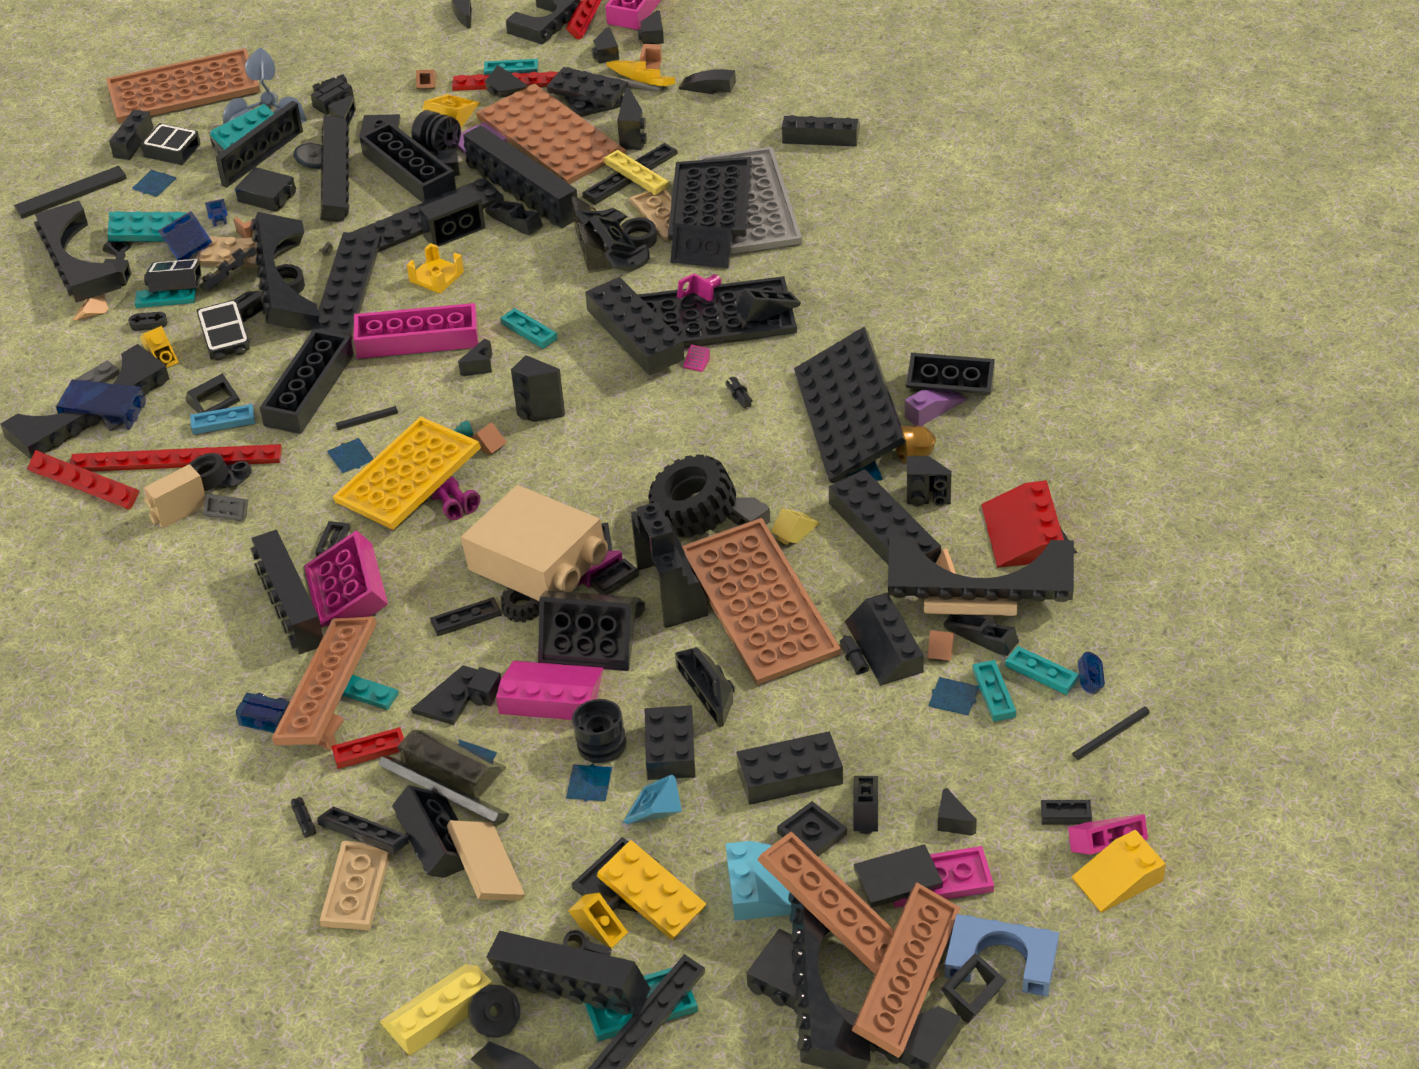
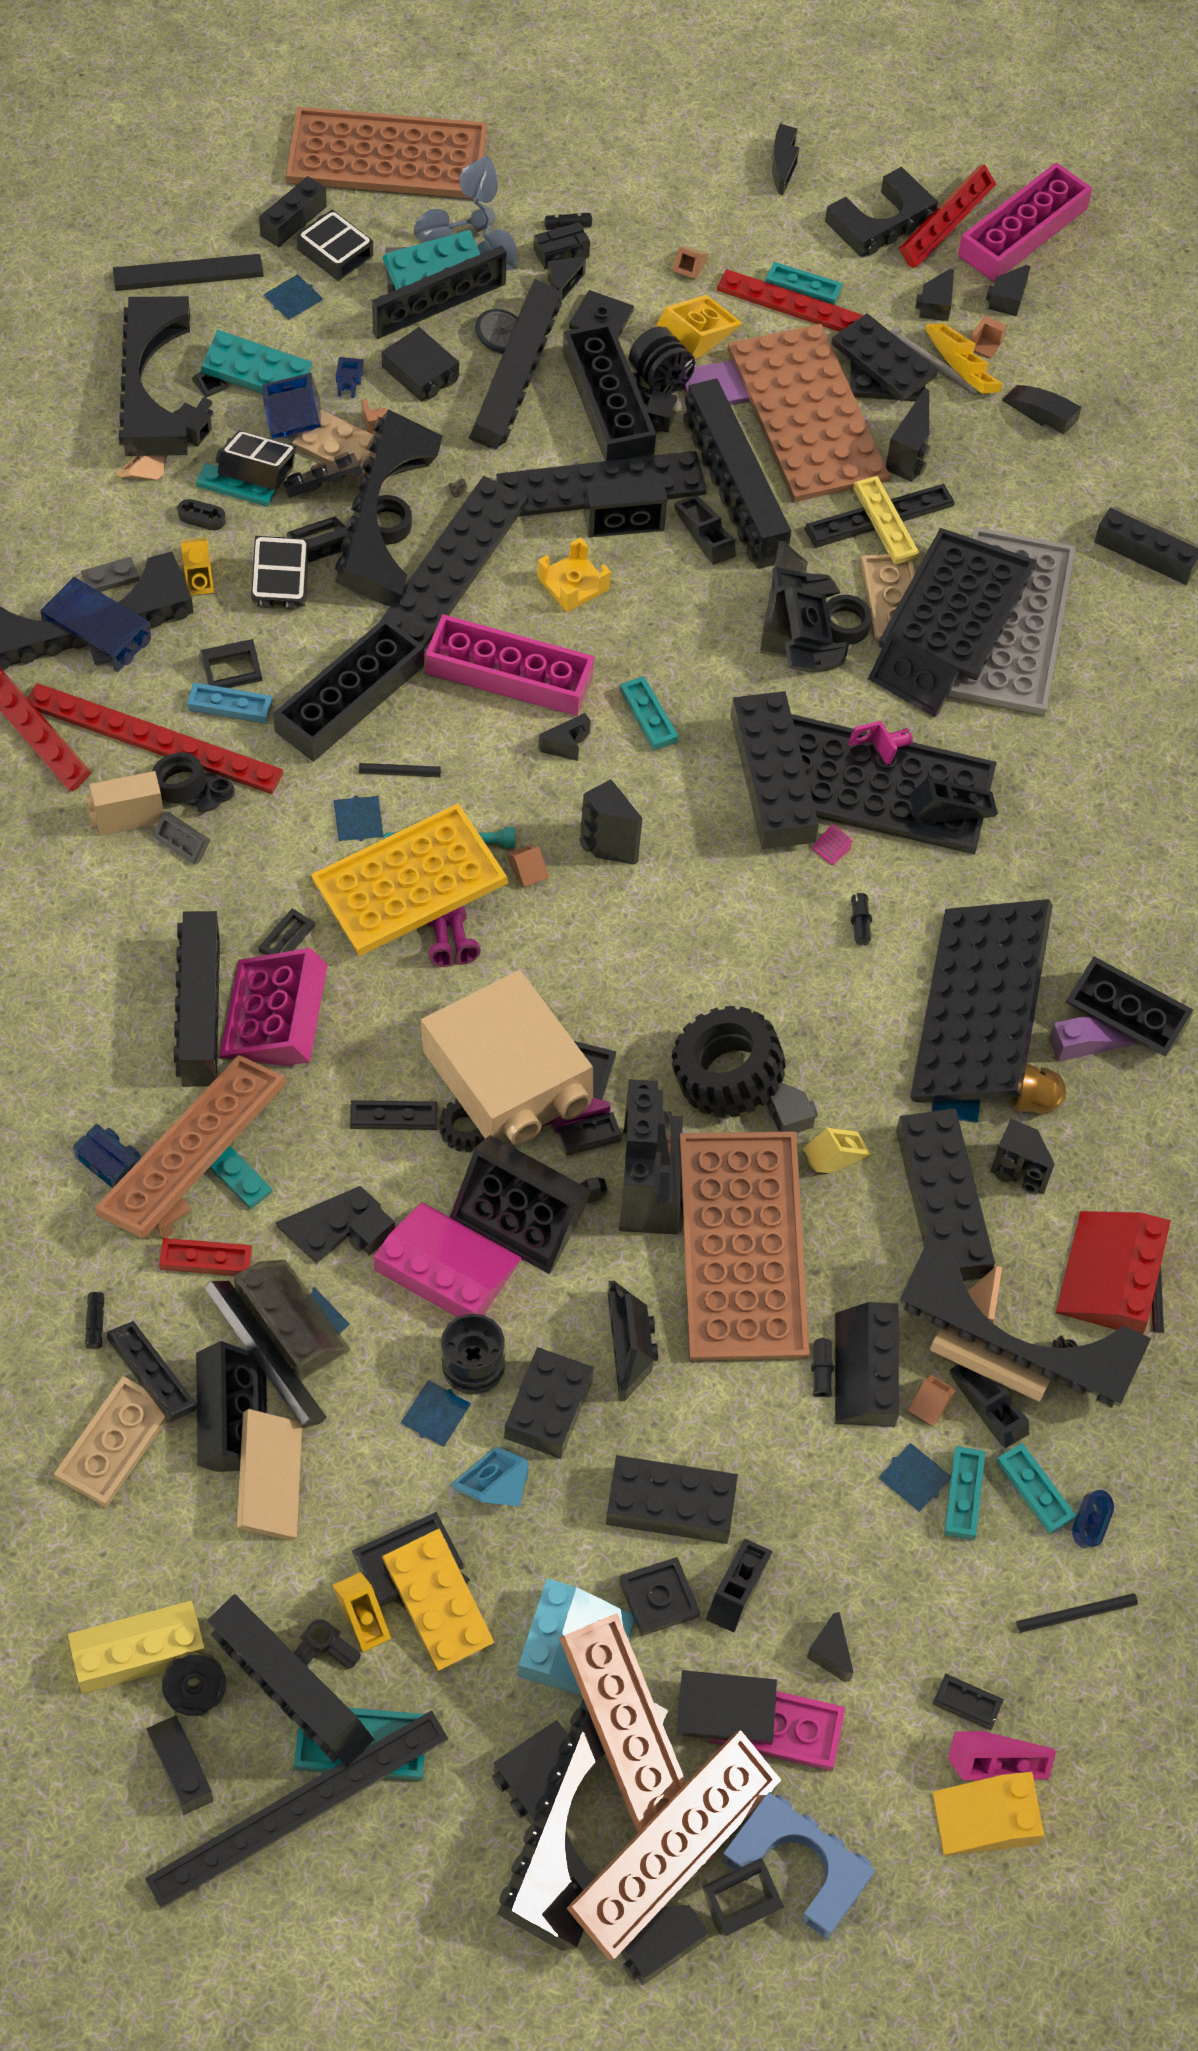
camera: 15 degrees right, 15 degrees up
(503, 83) = (781, 309): black slope -> none

